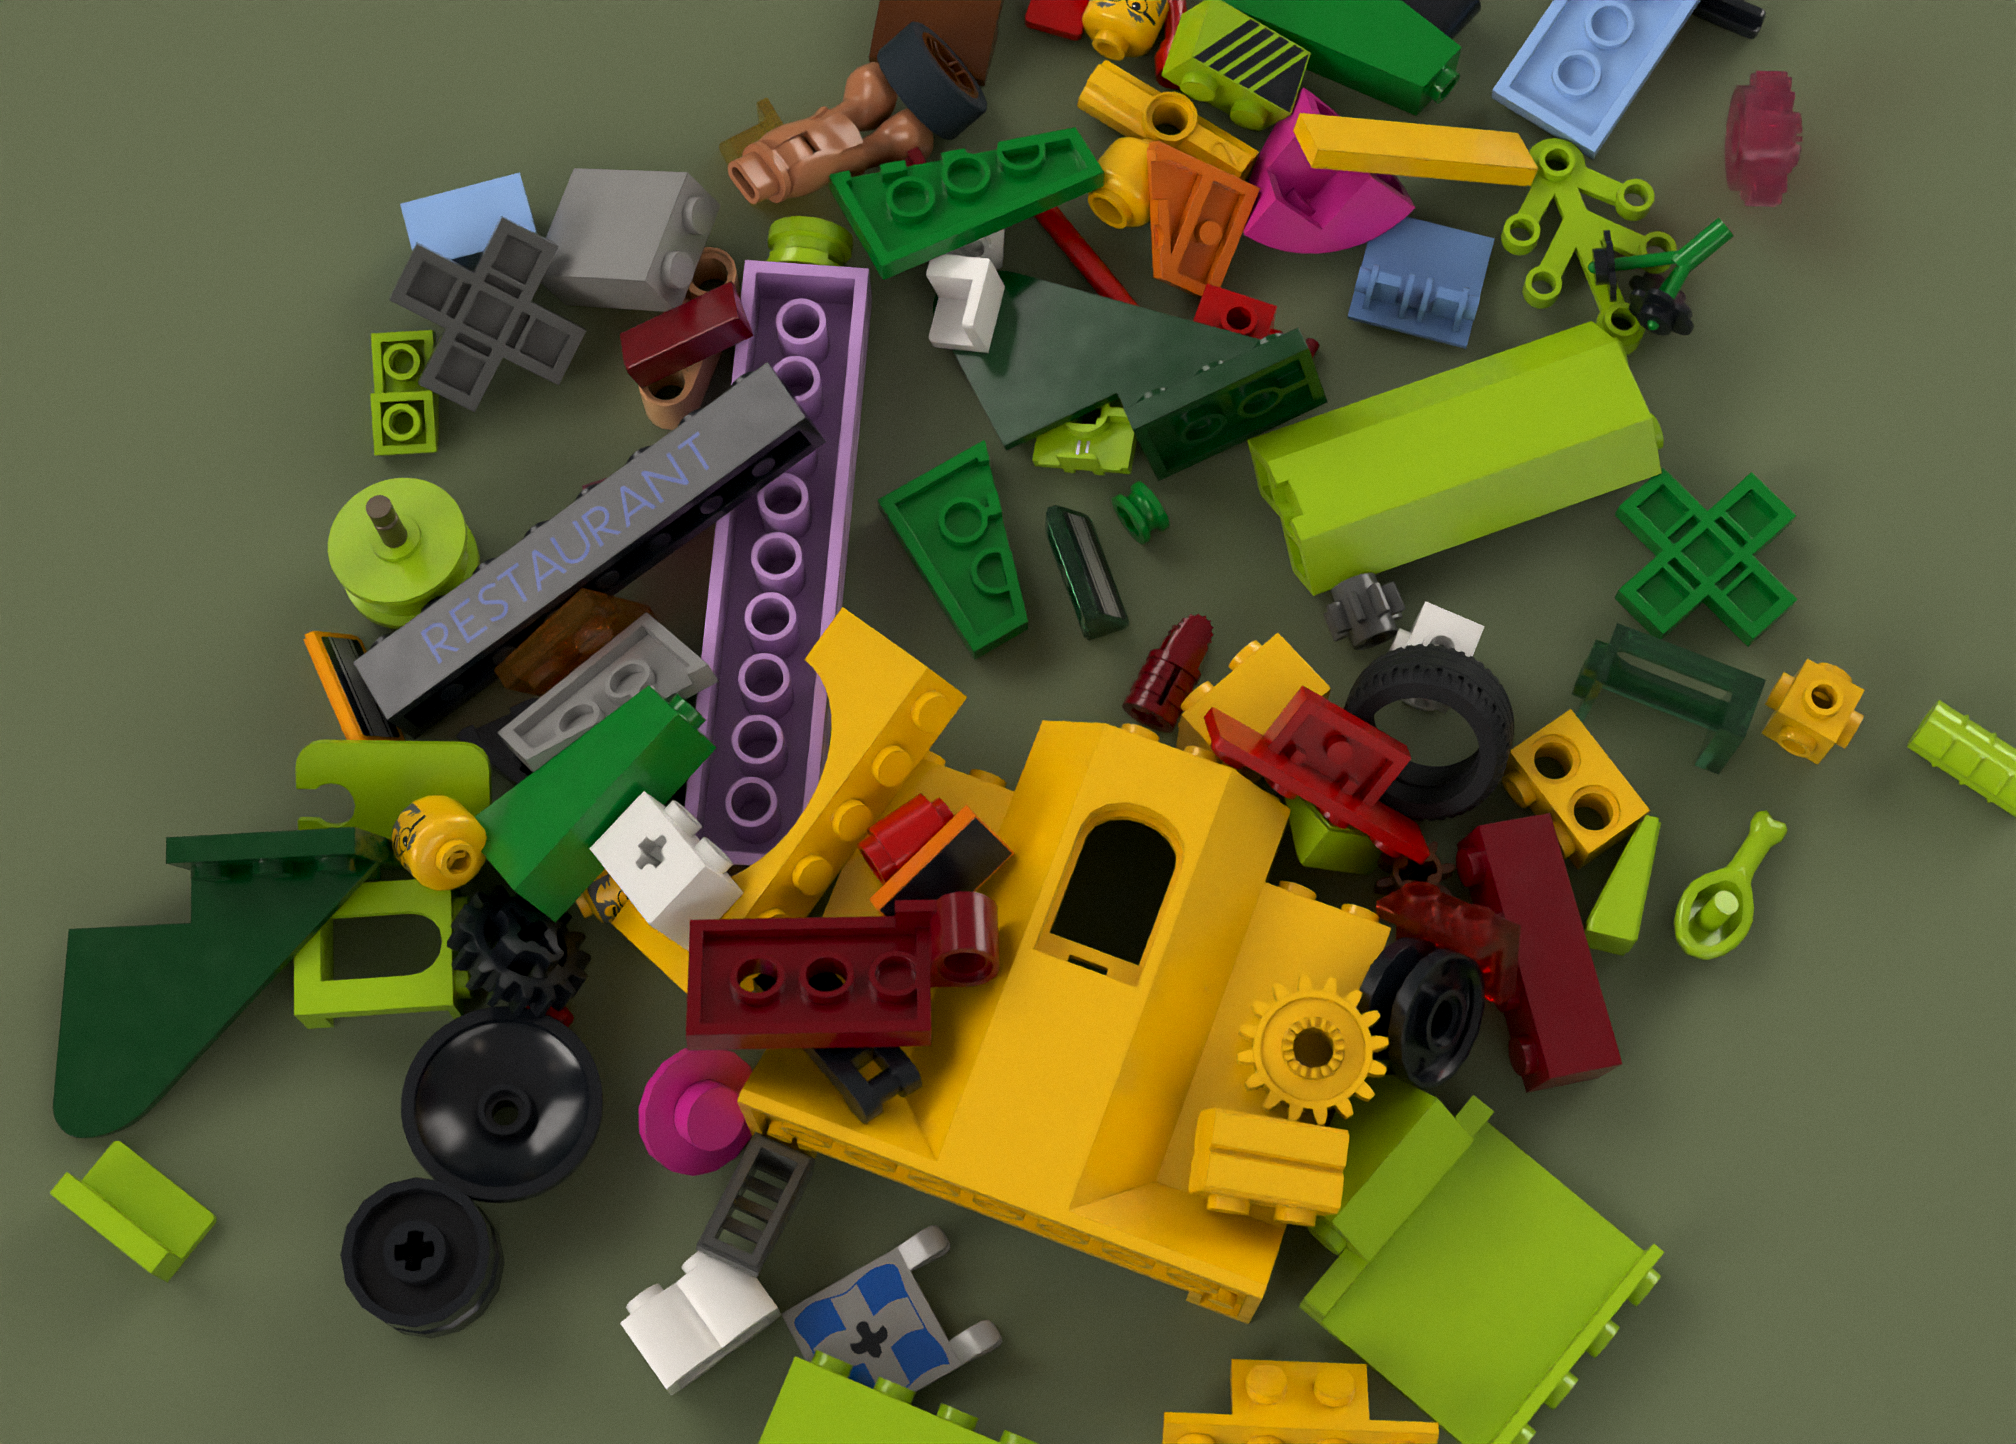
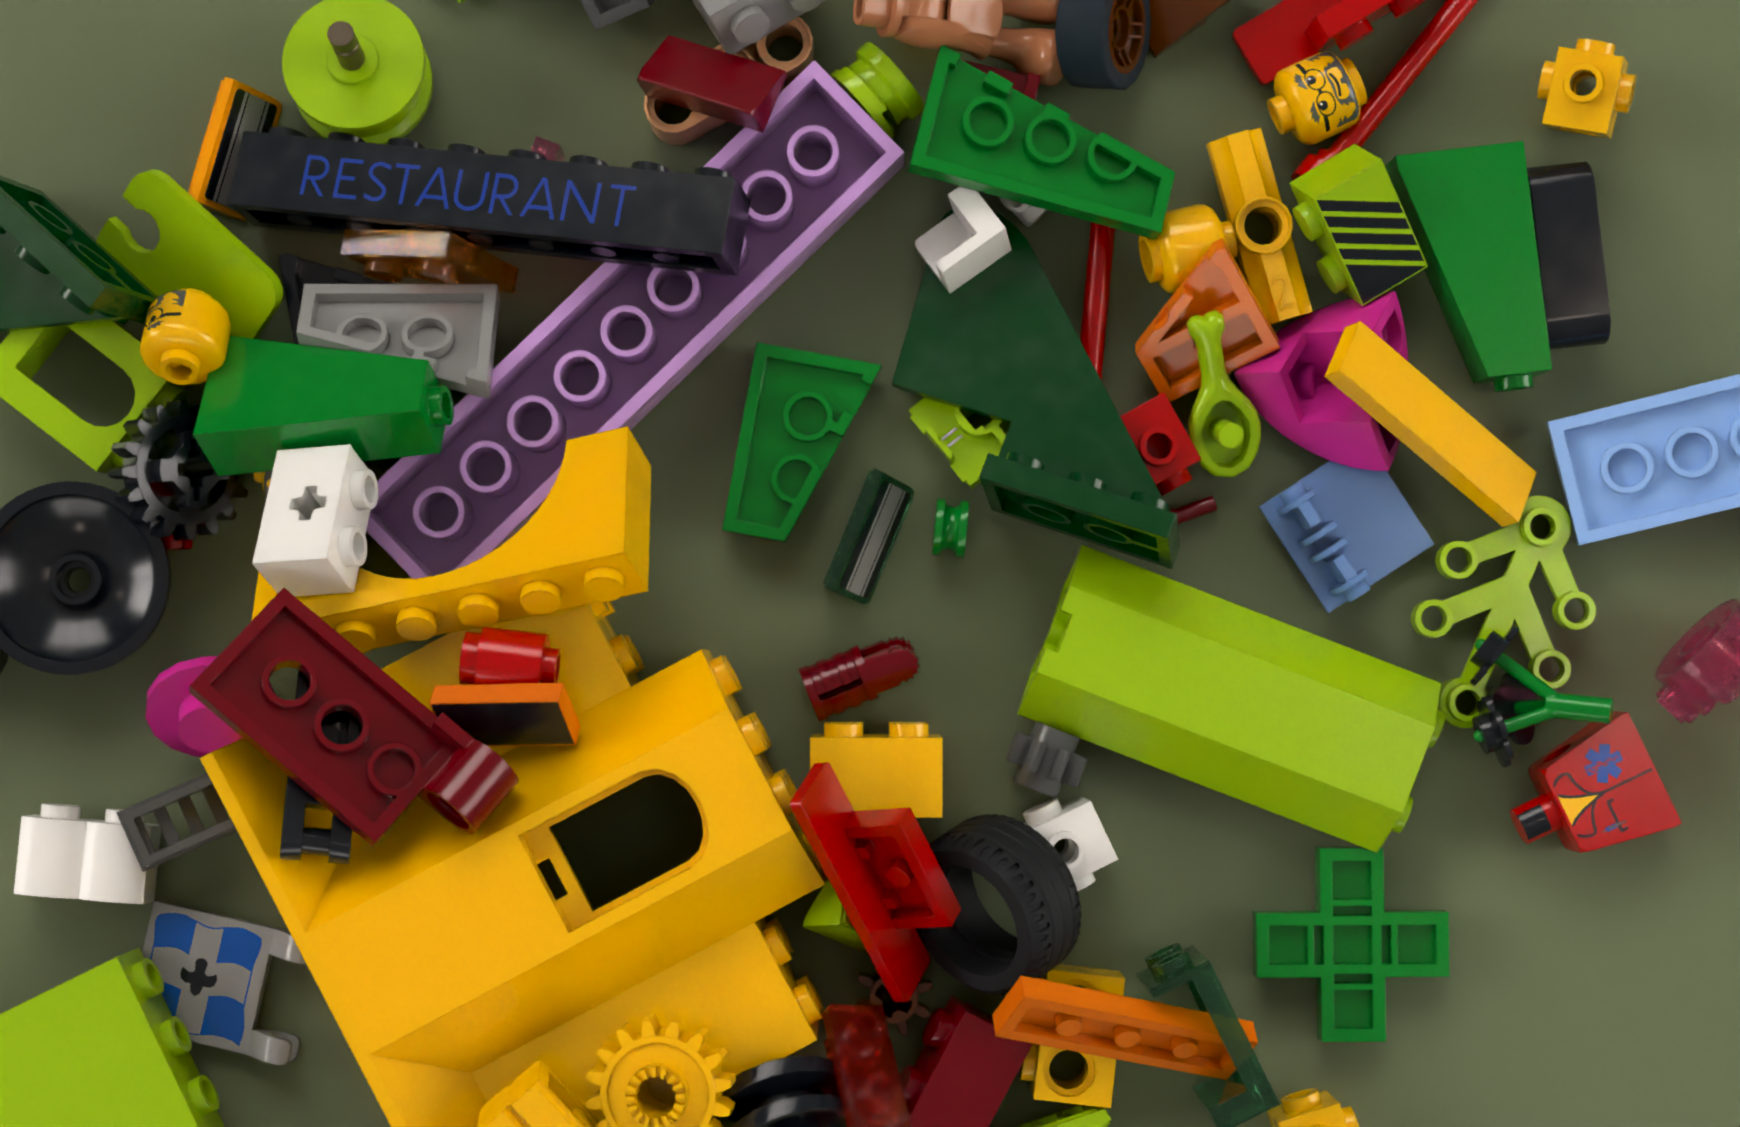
camera: 40 degrees right, 15 degrees up
(1259, 267) = (1222, 419): none -> lime piece
(1600, 736) = (1115, 1027): none -> orange plate
(1769, 302) = (1596, 790): none -> red torso

